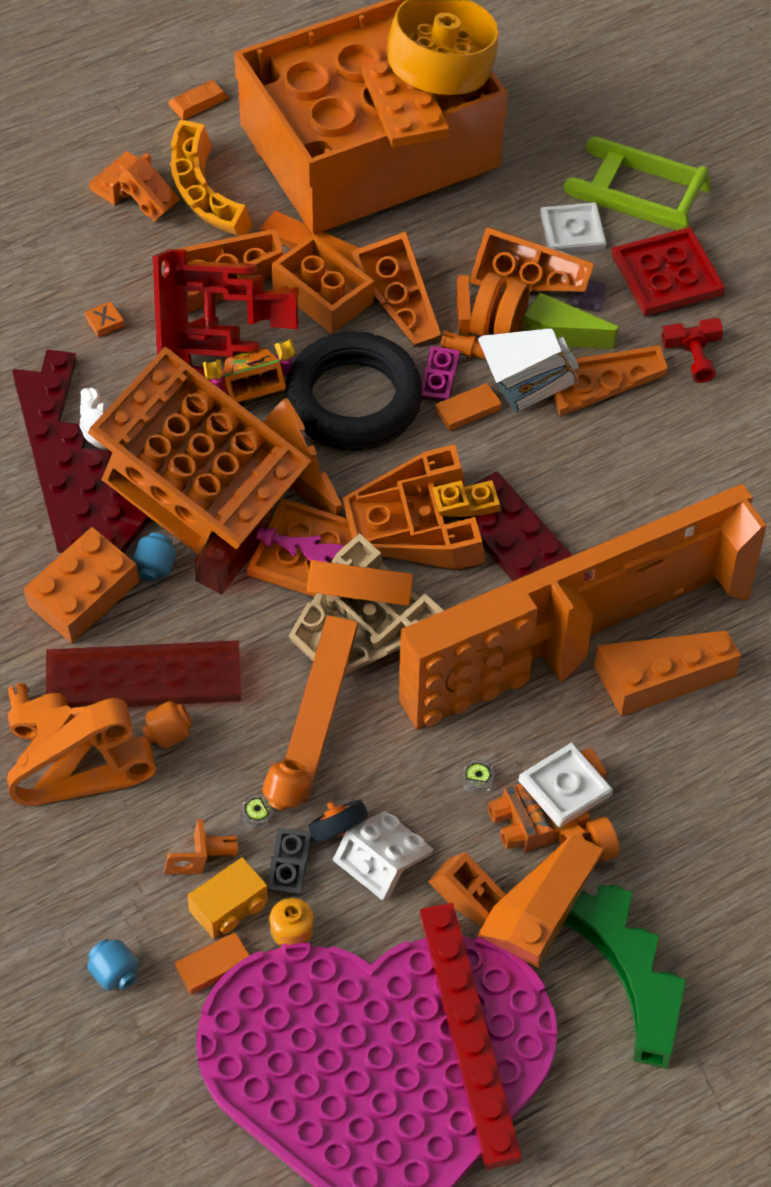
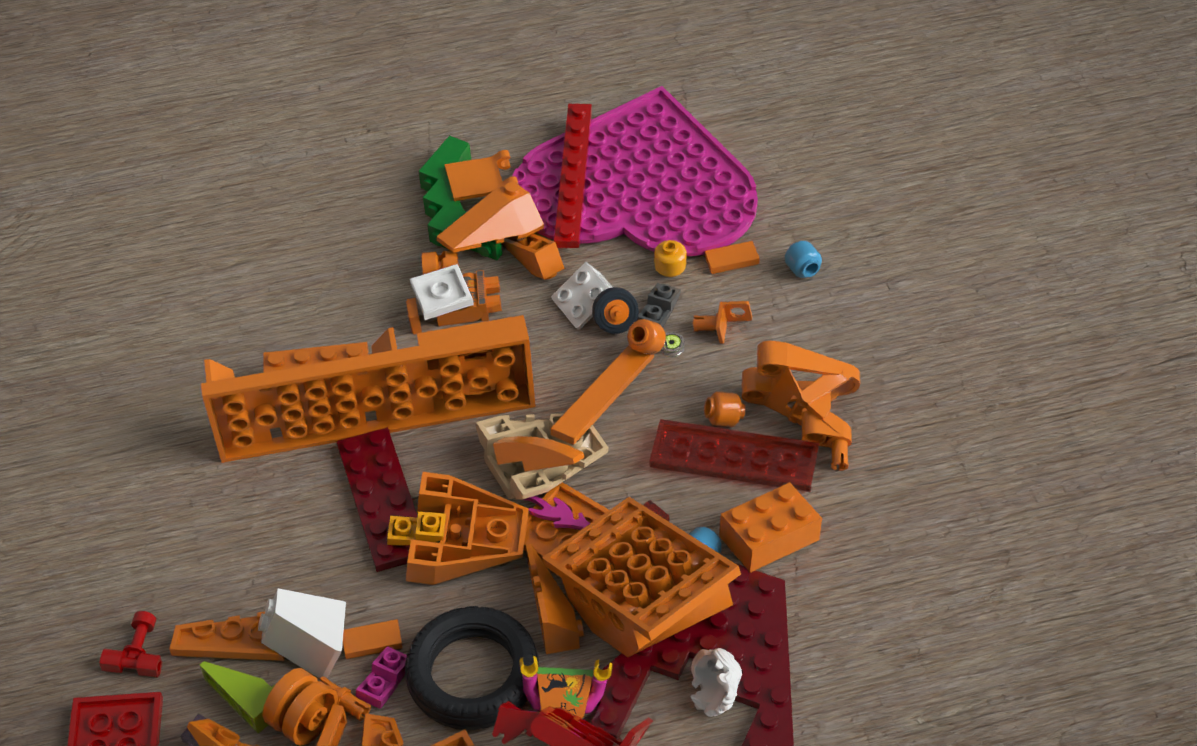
camera: 160 degrees left, 5 degrees down
(228, 898) = (710, 286): light orange brick -> none
(596, 984) = (478, 176): none -> orange flag

